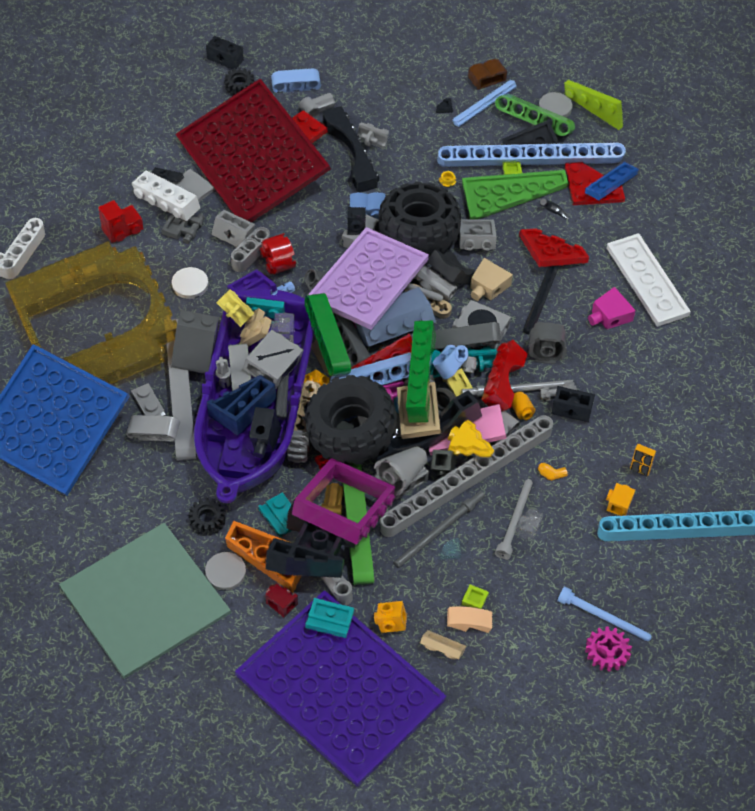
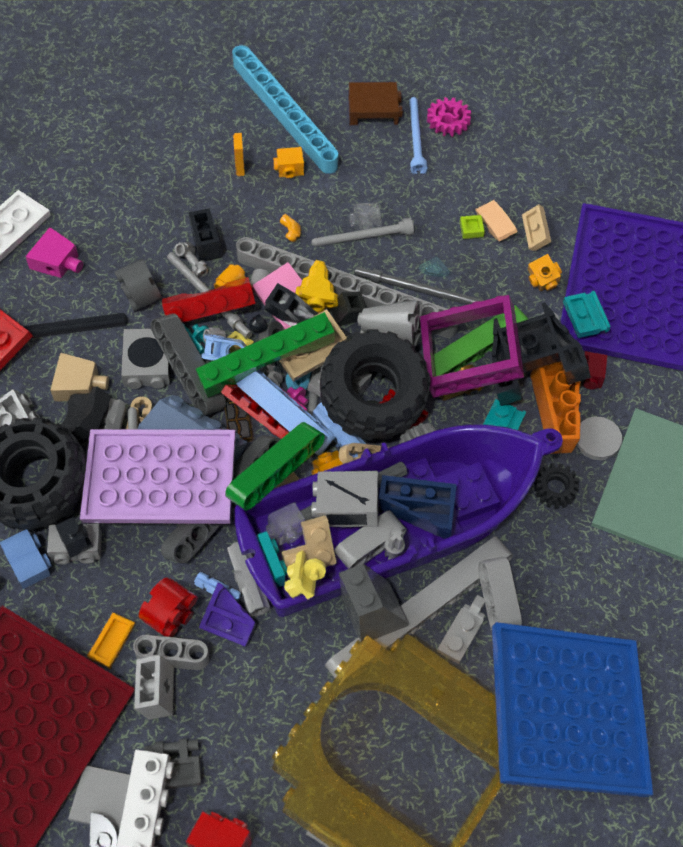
camera: 120 degrees left, 5 degrees up
(190, 282) = (261, 698): white tile -> none
(264, 431) = (441, 461): black torso -> none
(280, 225) = (111, 640): none -> light orange tile
(655, 596) = (374, 101): none -> reddish brown panel

